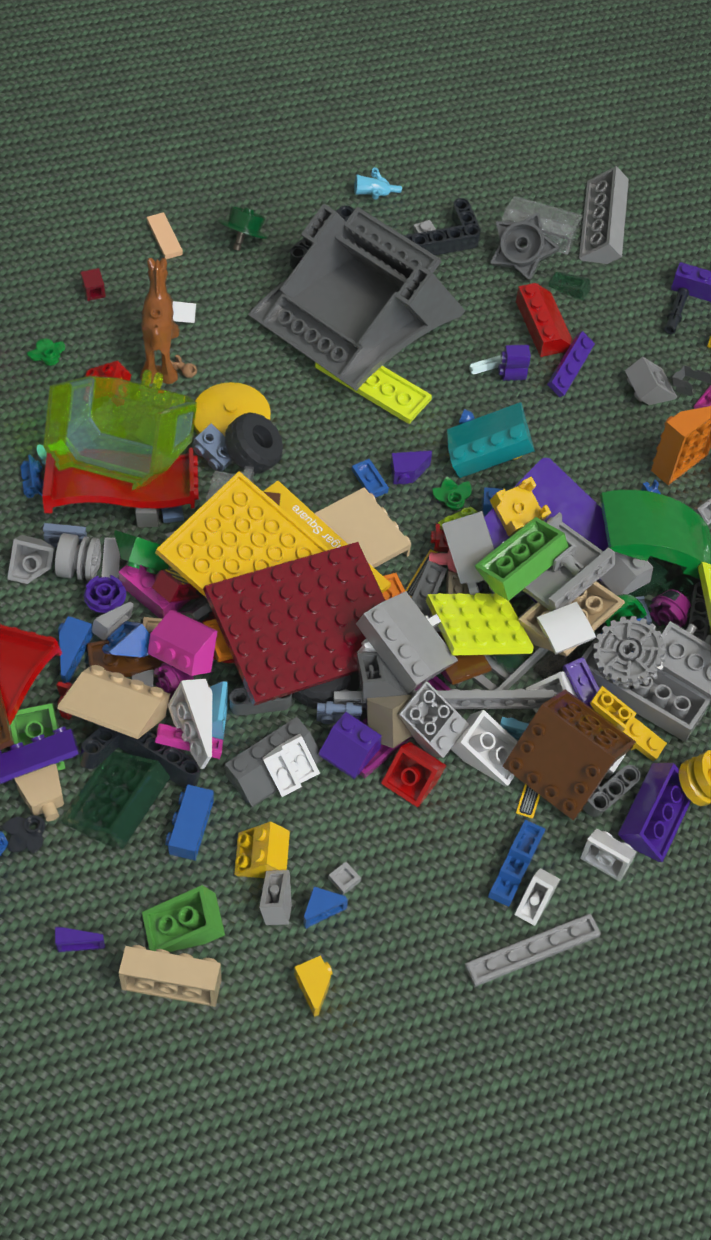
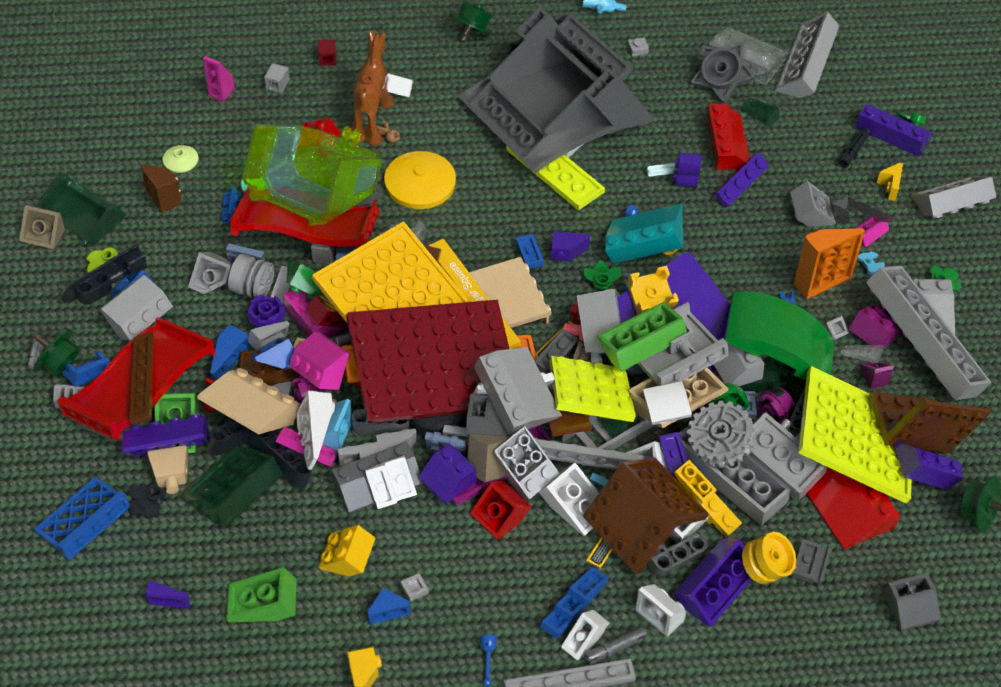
camera: 15 degrees right, 5 degrees down
(44, 322) = (277, 78): none -> light grey brick
(47, 351) = (273, 103): green plate -> none
(164, 236) = (401, 20): light nougat tile -> none
(170, 975) = (237, 639): tan brick -> none
(190, 822) = (290, 515): blue brick -> none
(211, 446) = (396, 204): sand blue brick -> none
(253, 442) = (430, 203): black tyre -> none
(270, 722) = (386, 440): none -> light grey slope
(276, 898) = (348, 592): light grey slope -> none
(439, 926) = (488, 643): none -> blue hinge
(452, 239) = (658, 57): black beam -> none
(566, 906) = (606, 649): none -> dark grey pin

